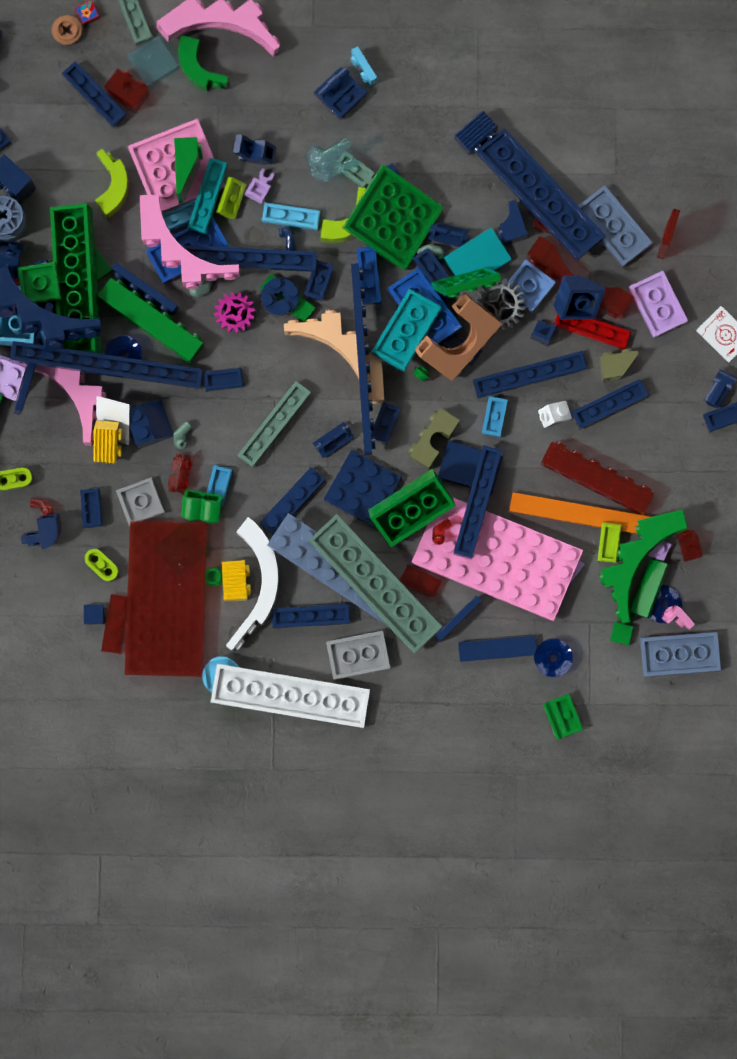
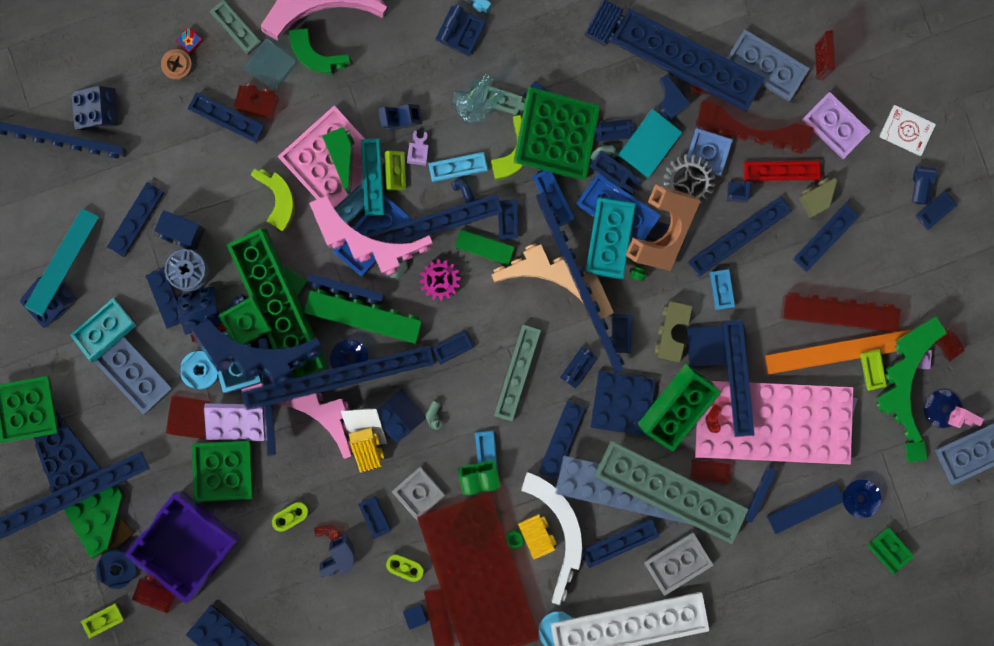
camera: 25 degrees left, 5 degrees up
(182, 465) = (448, 462): clear red hinge -> none
(277, 286) = (485, 241): dark blue plate -> none
(467, 281) = (652, 172): green plate -> none
(554, 413) = (777, 266): white bracket -> none
(578, 298) = (761, 148): dark blue slope -> none
(649, 588) = (927, 399): green tile -> none

